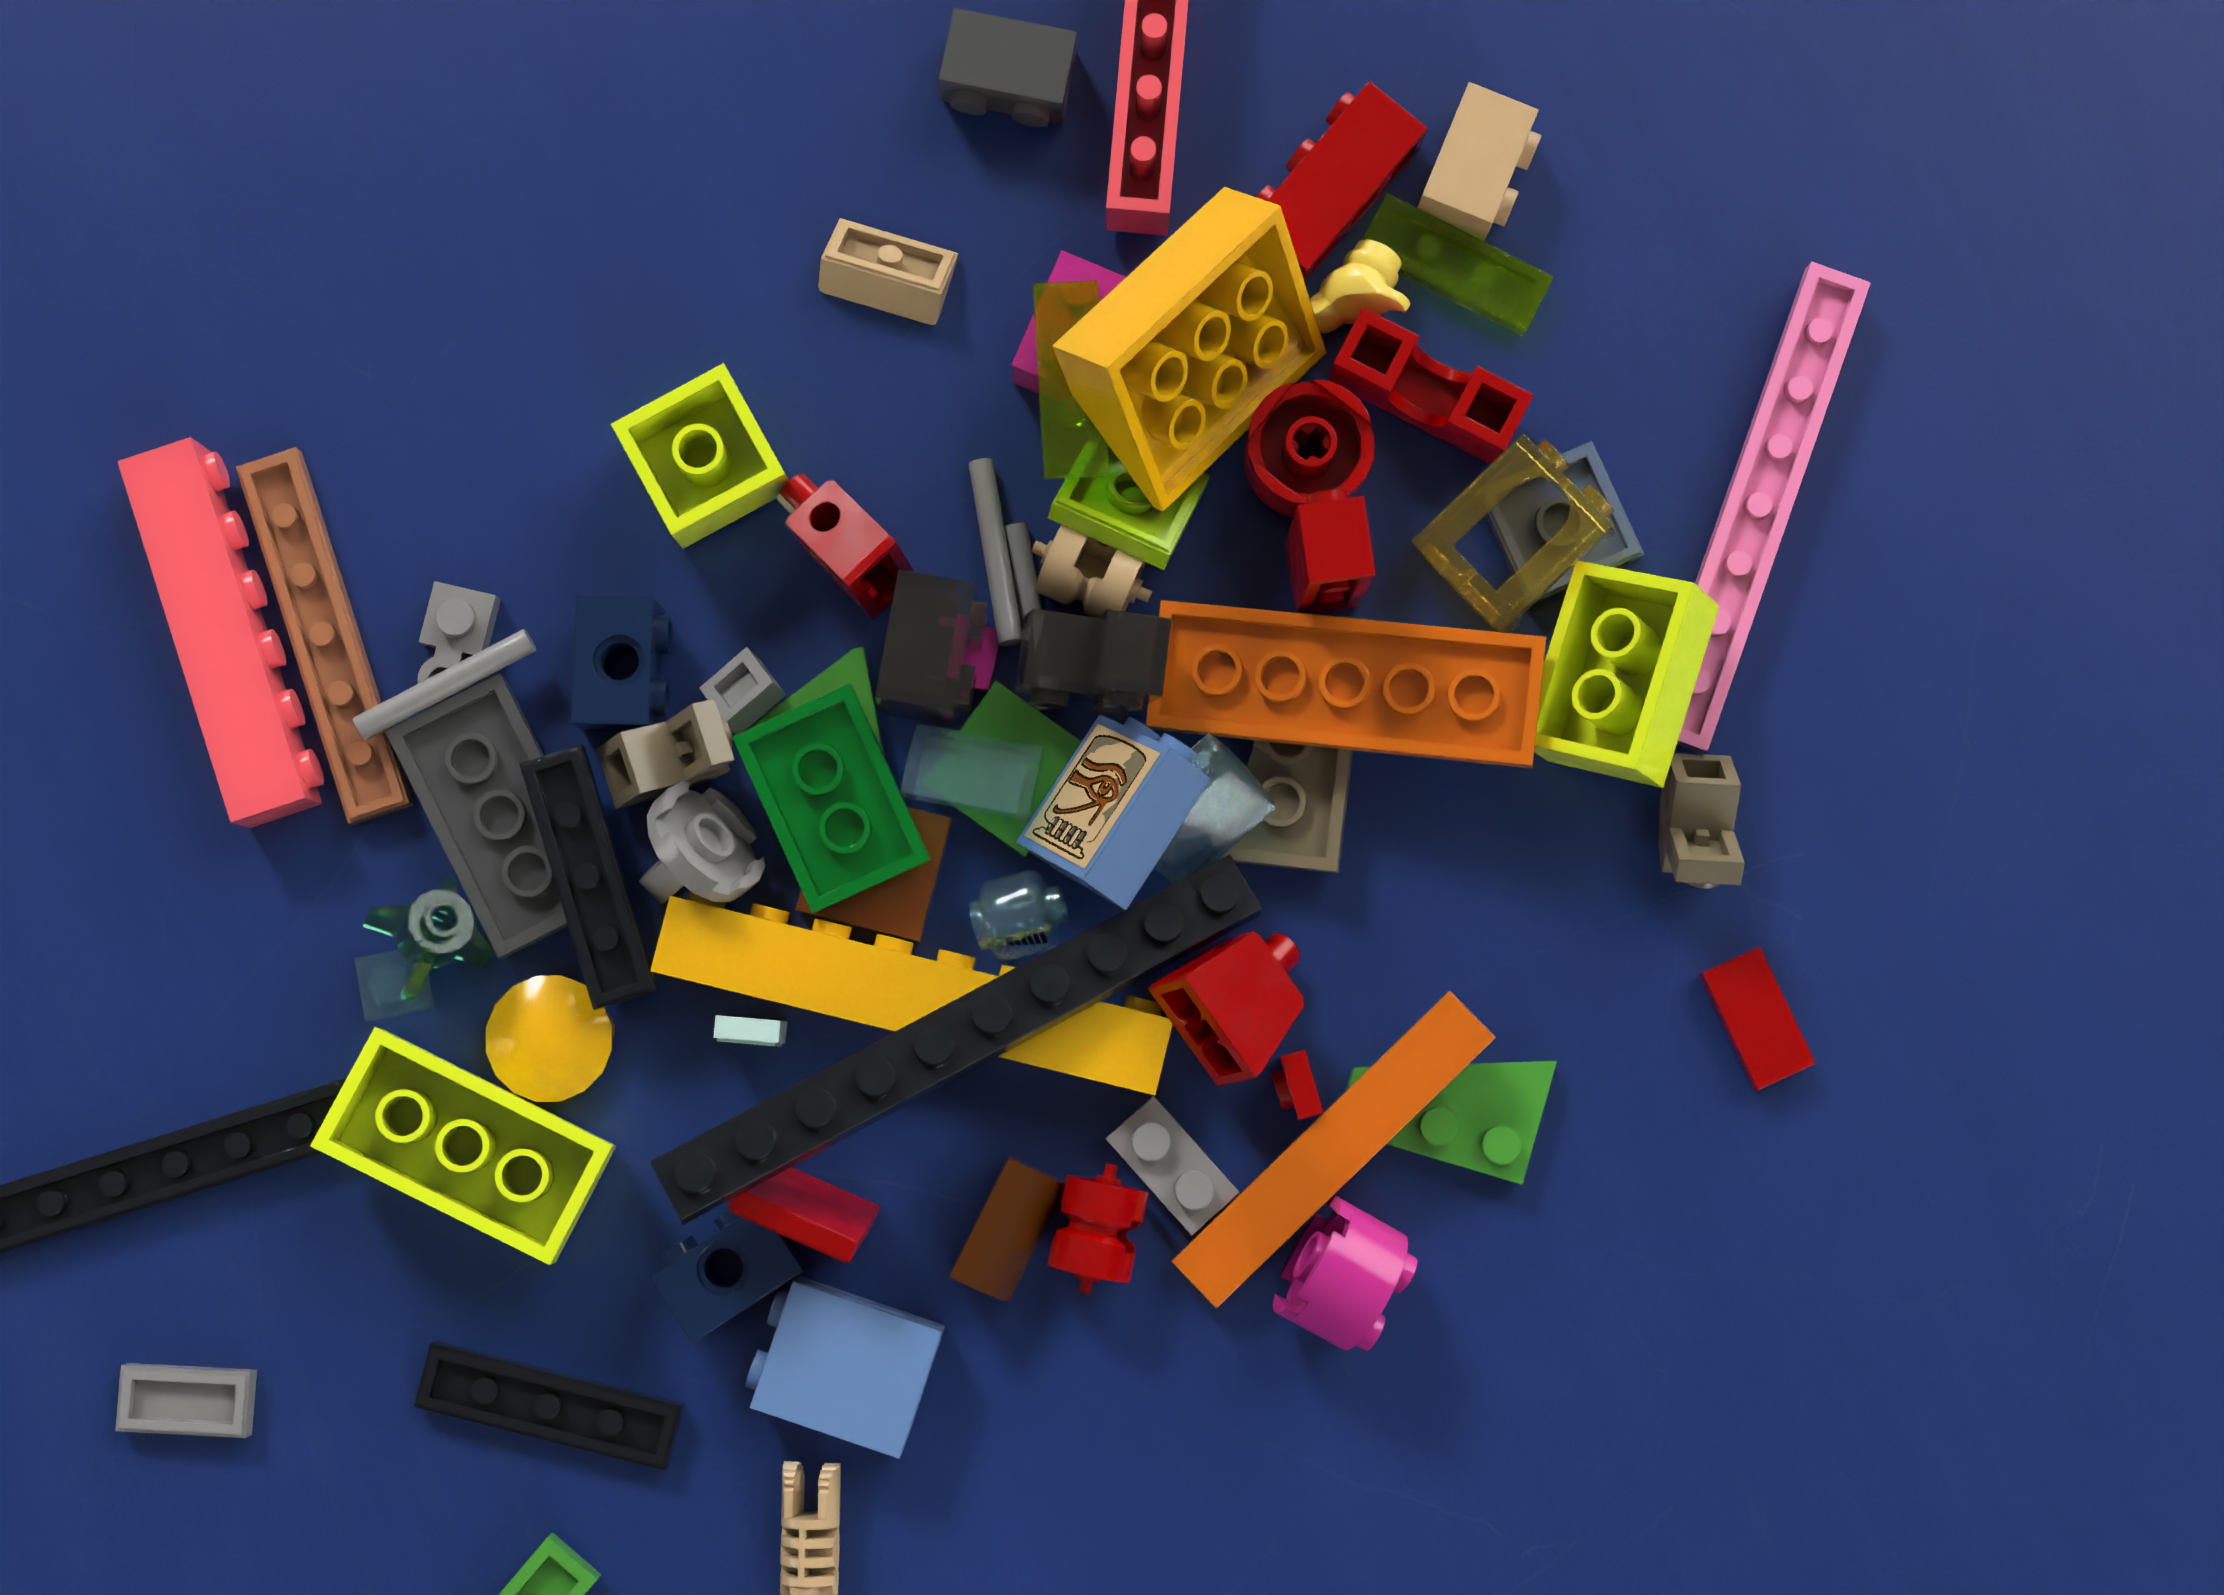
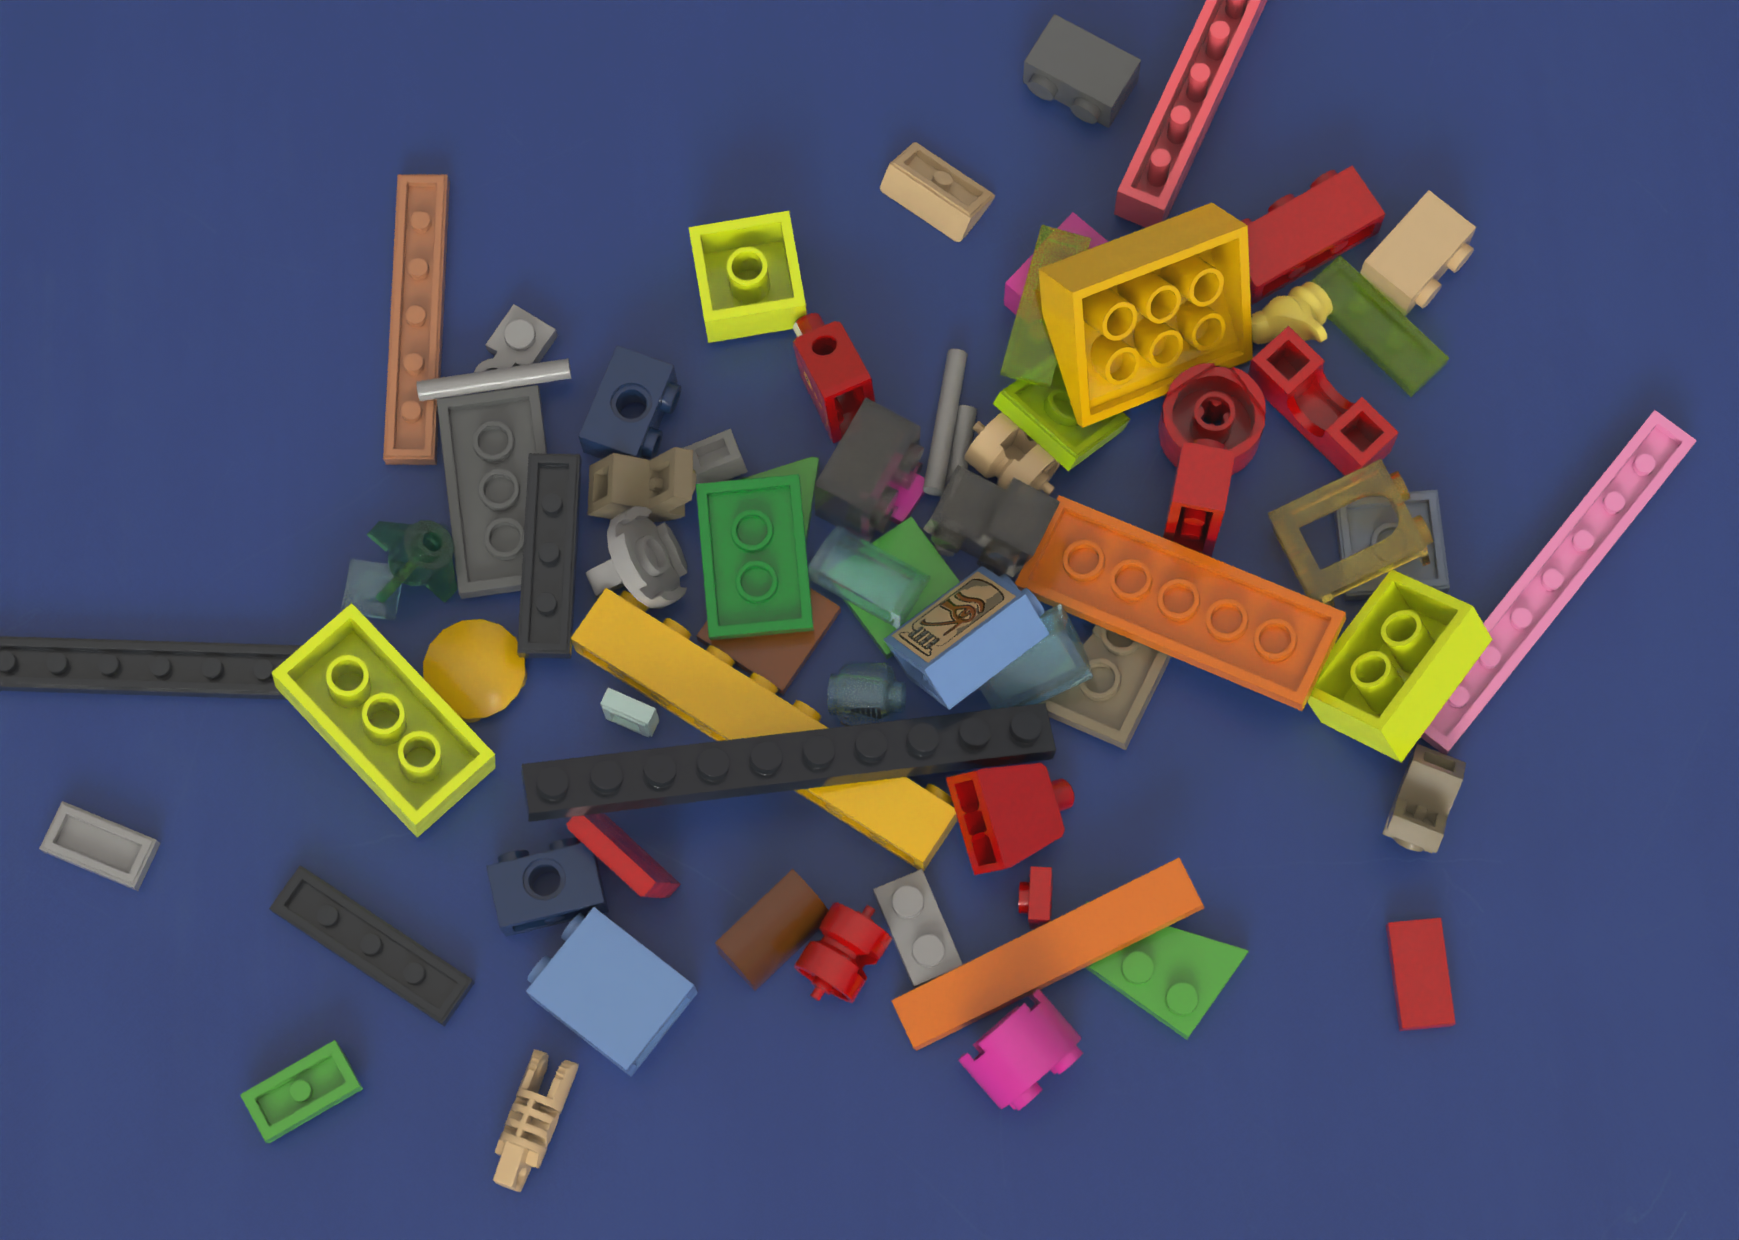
camera: 25 degrees right, 10 degrees down
(222, 633) = (342, 290): coral brick -> none

